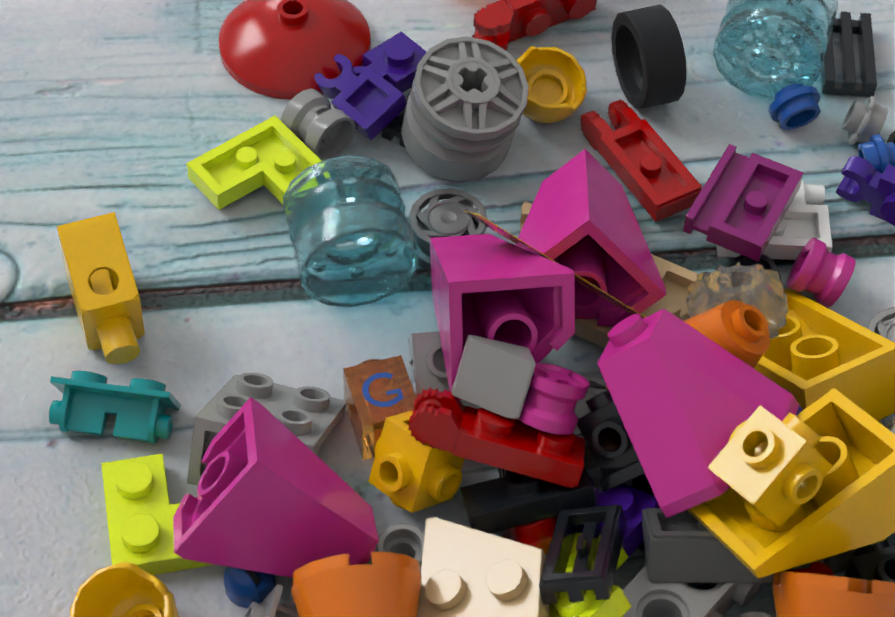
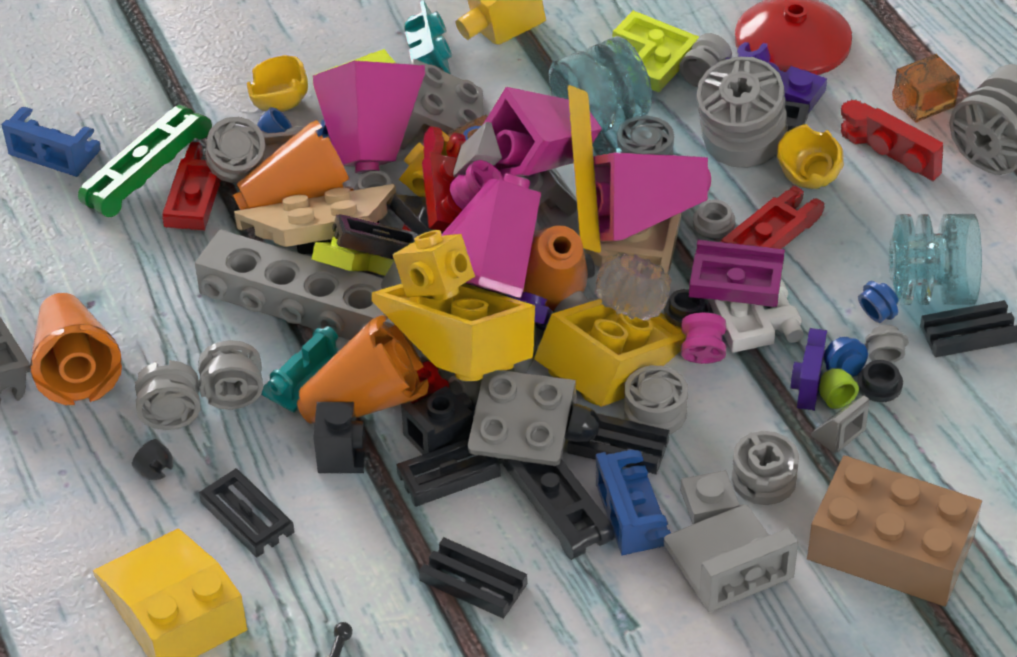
camera: 75 degrees right, 5 degrees down
(649, 56) = (862, 197): black tyre -> none

